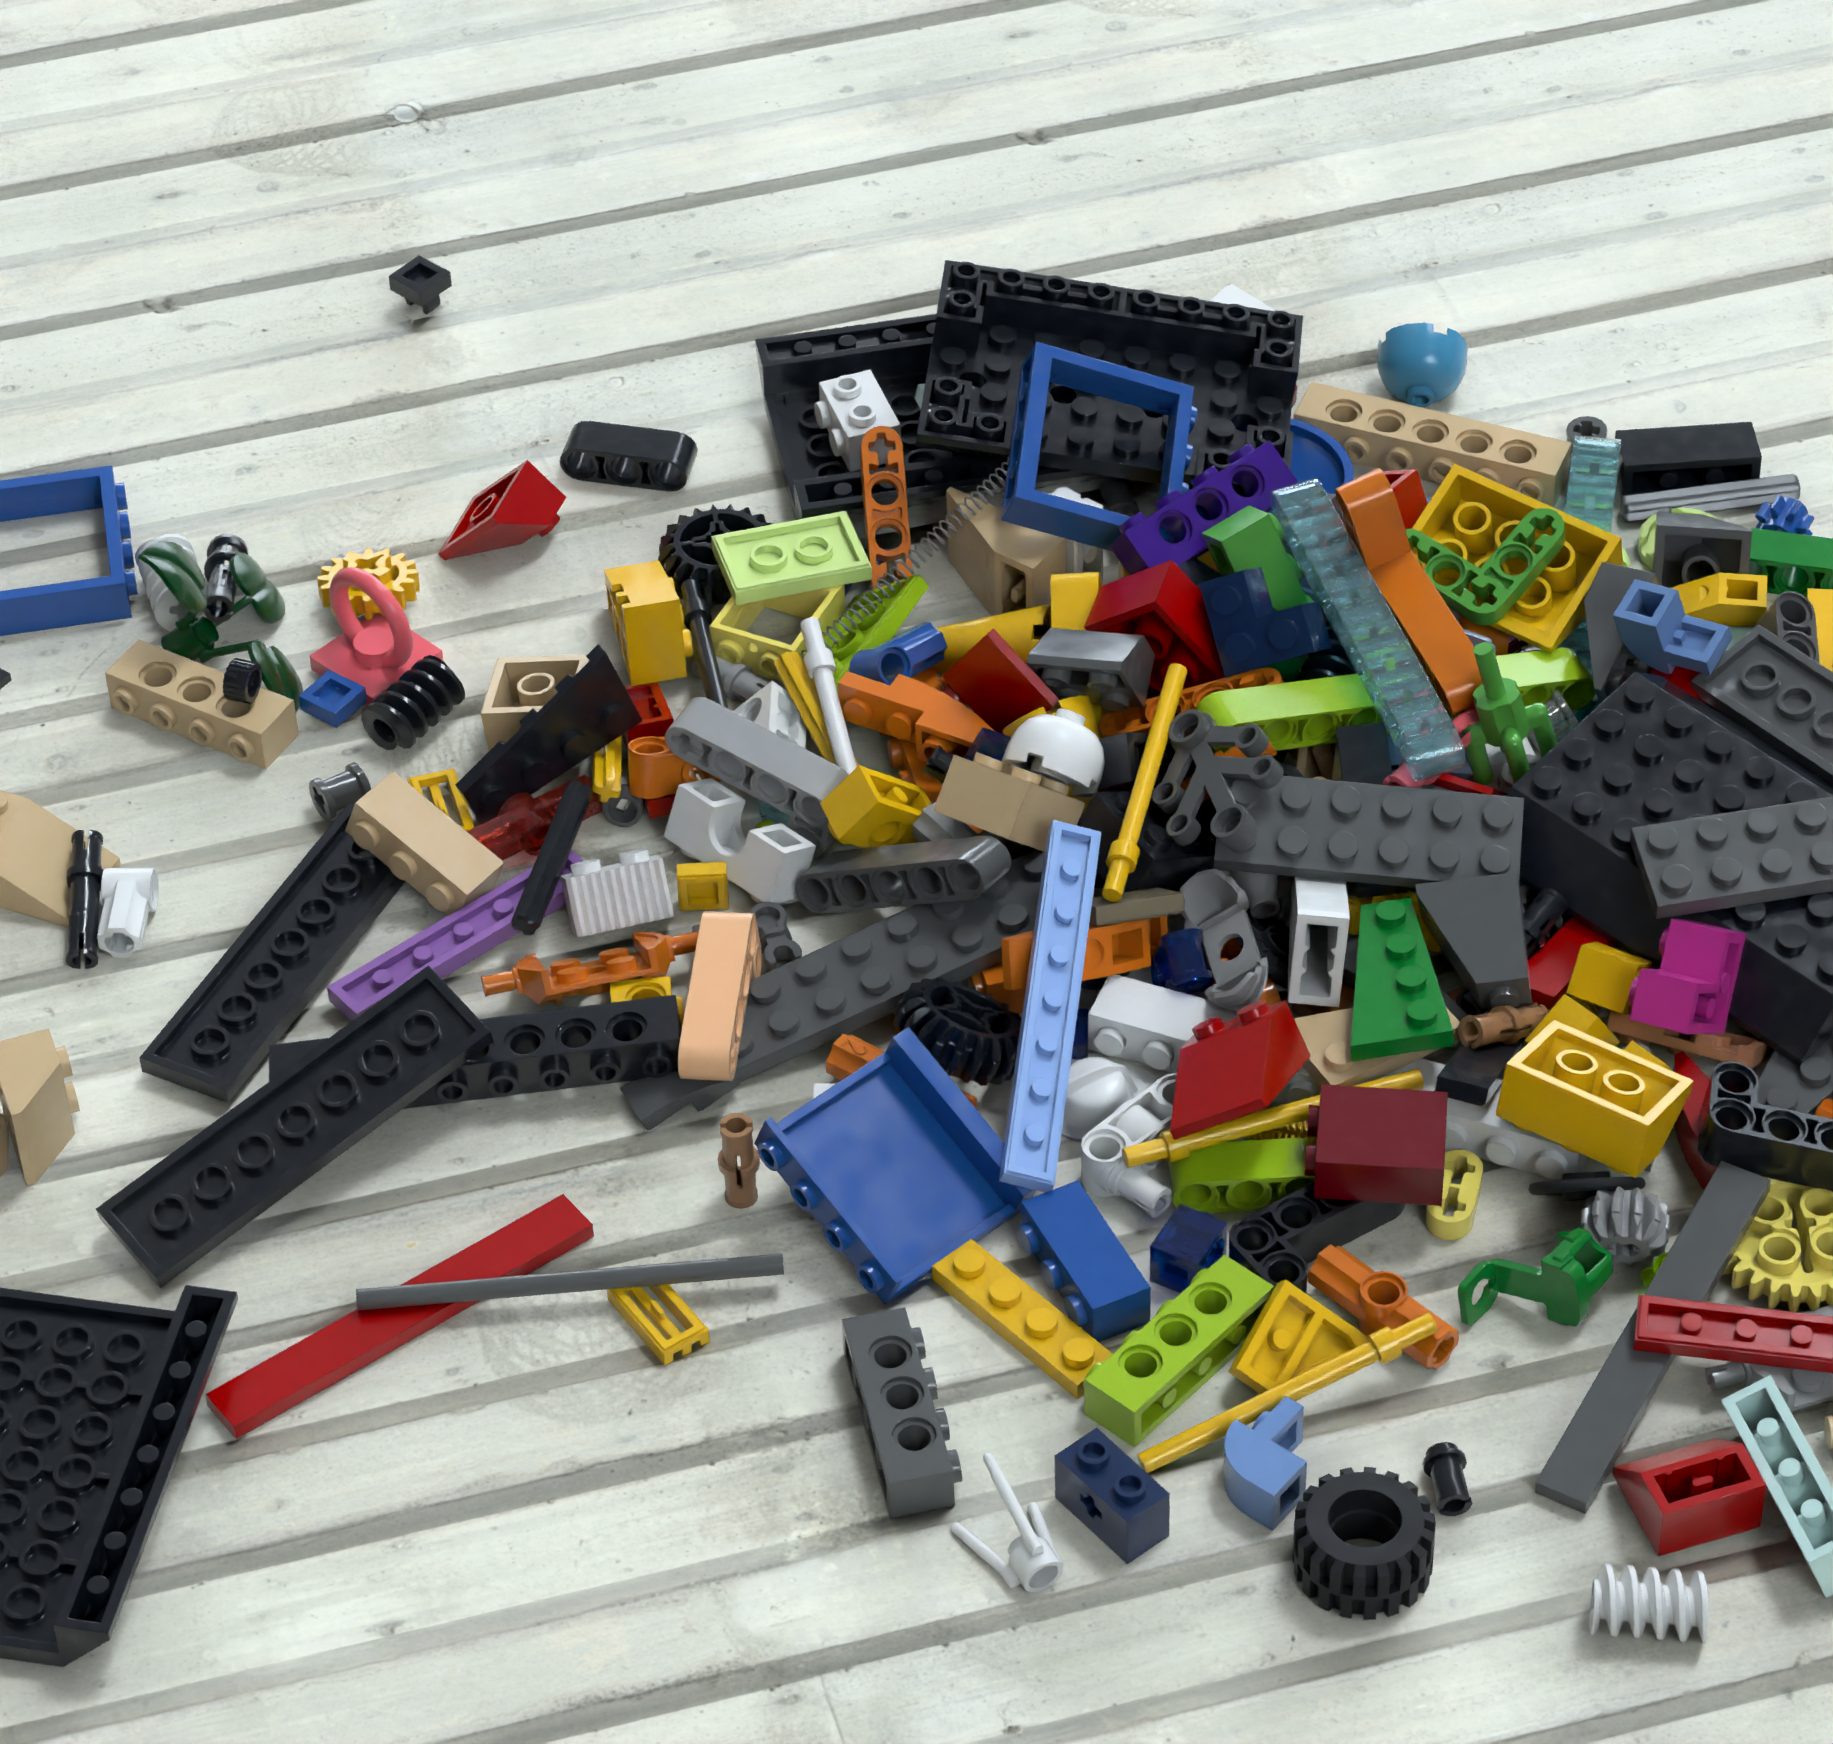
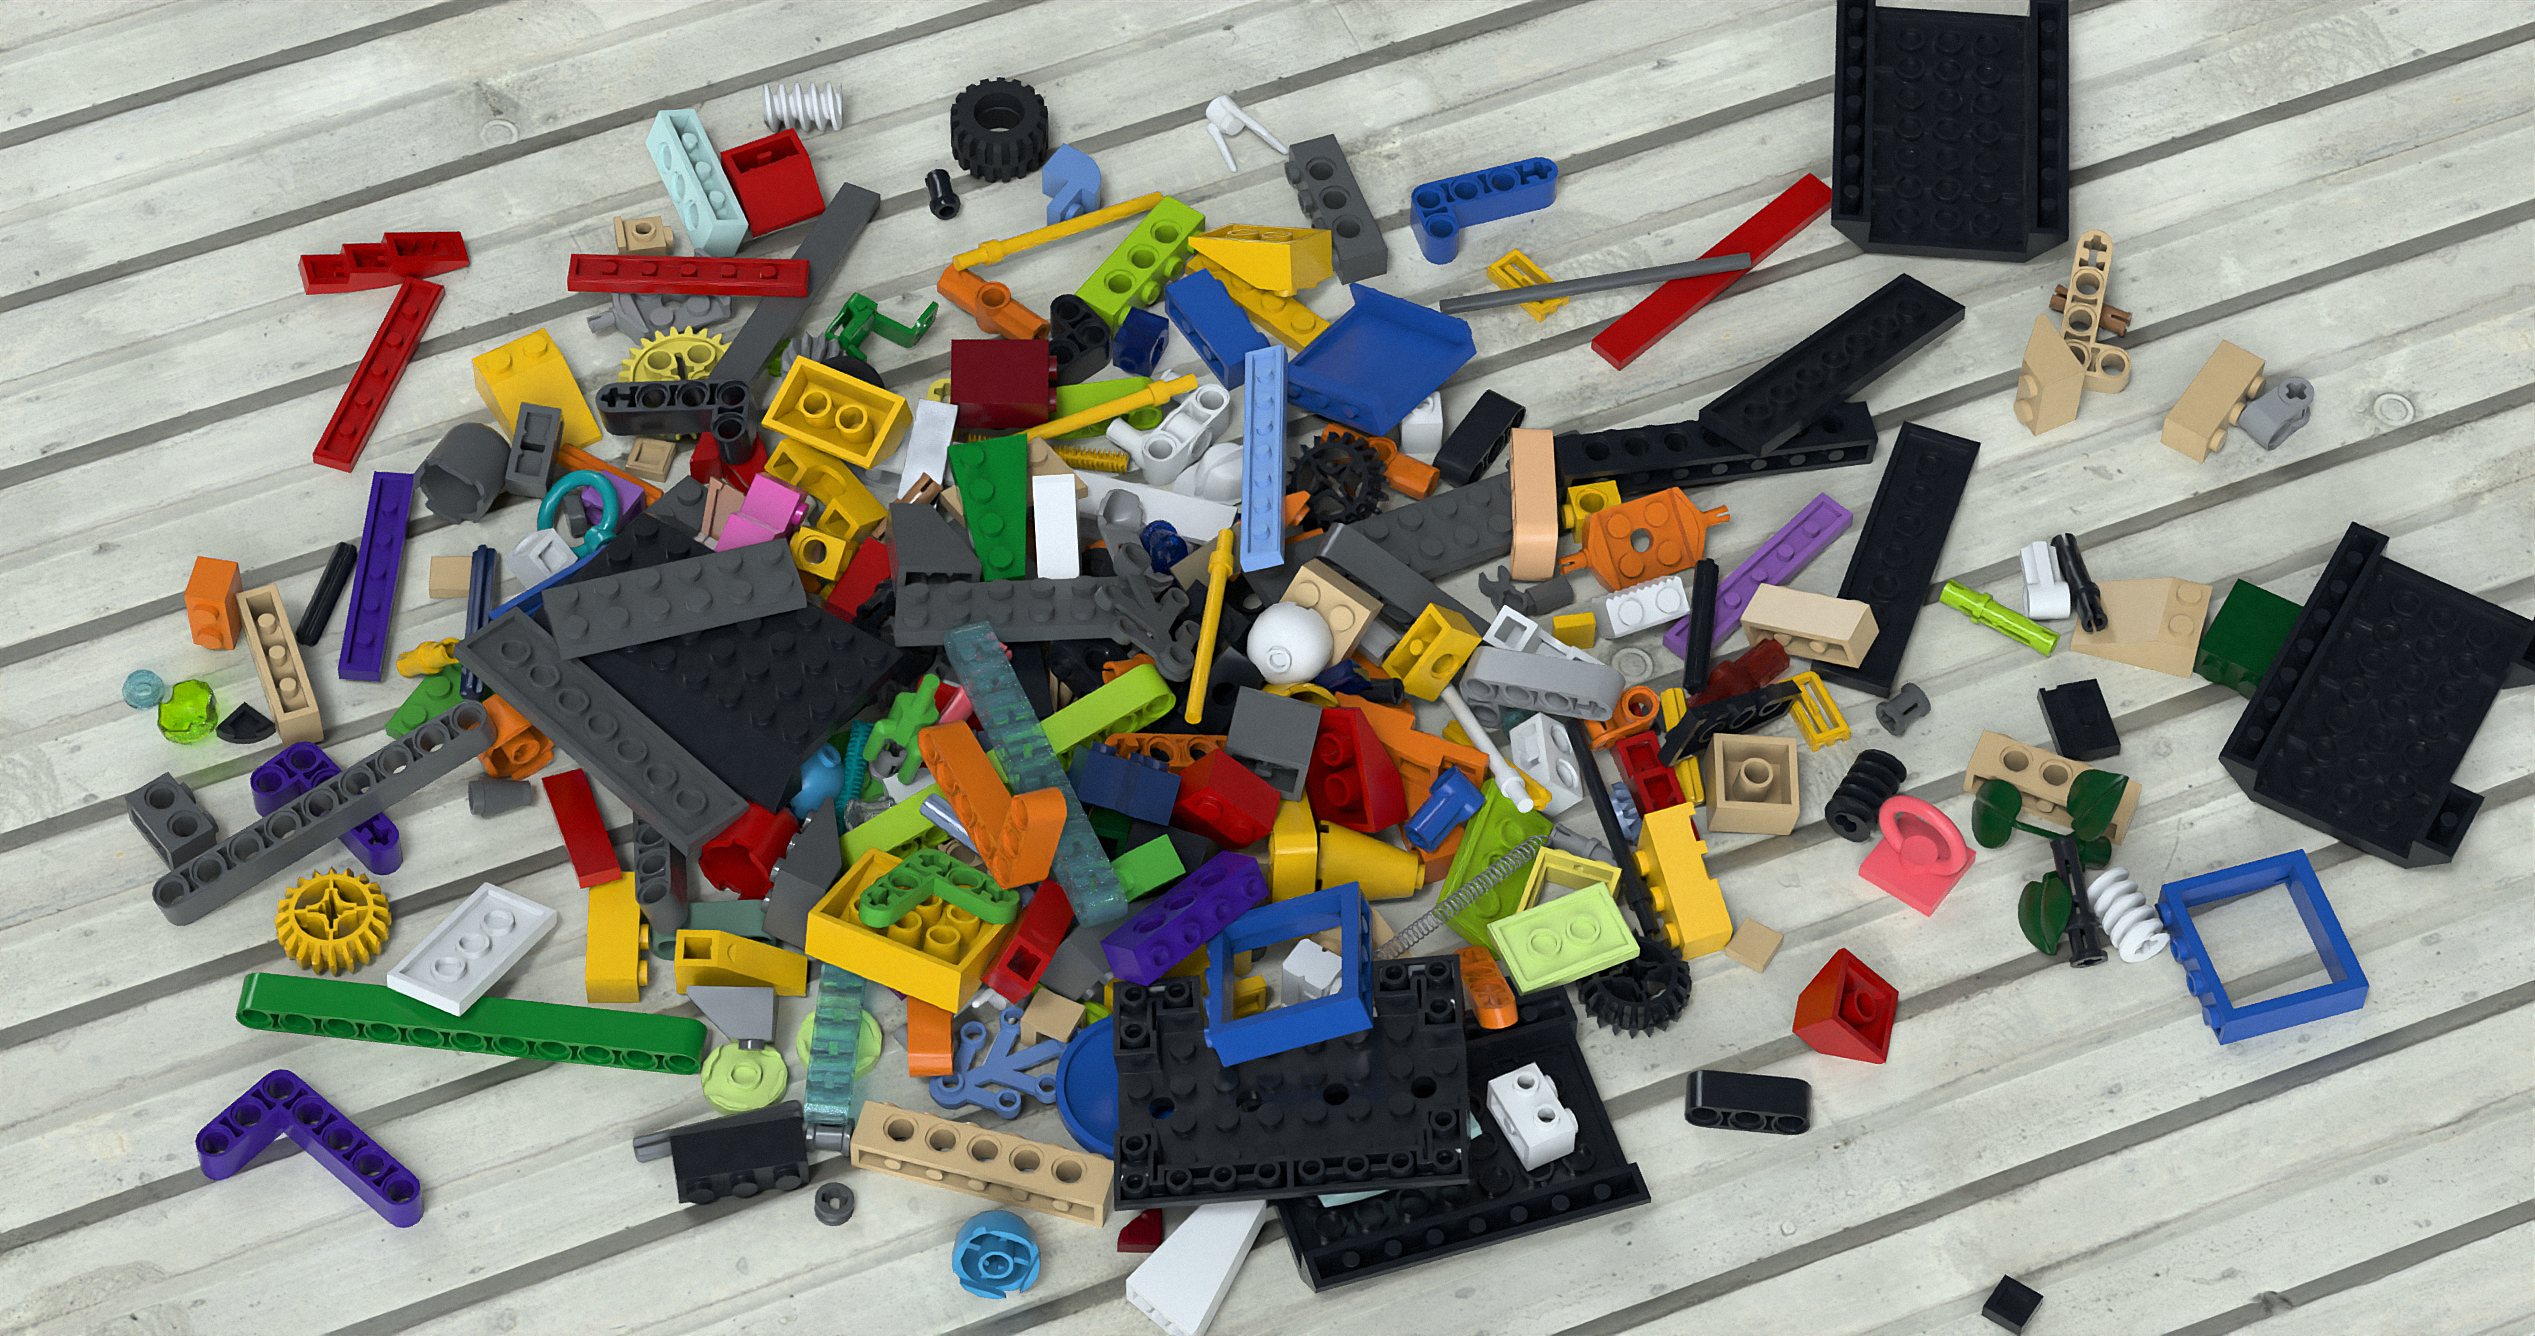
camera: 170 degrees right, 10 degrees up
(143, 771) = (2079, 720): none -> black plate
(205, 887) = (2005, 620): none -> lime pin
(242, 681) = (2012, 756): black axle -> none
(332, 698) = (1946, 799): blue plate -> none
(394, 572) = (1959, 938): yellow gear -> none
(578, 596) = (1754, 945): none -> tan tile
(687, 682) = (1626, 811): none -> sand blue gear
(700, 1412) = (1478, 198): none -> blue beam
(738, 1141) = (1489, 363): medium nougat pin -> none
(771, 1092) = (1478, 439): none -> black beam
(1014, 1333) = (1270, 255): none -> yellow slope
(1112, 1495) = (1177, 155): dark blue brick -> none
(1235, 1066) = (1114, 414): red slope -> none
(1291, 1338) = (1059, 273): yellow wing -> none
(1662, 636) = (770, 821): medium blue brick -> none
(1785, 516) = (652, 1080): blue gear -> none

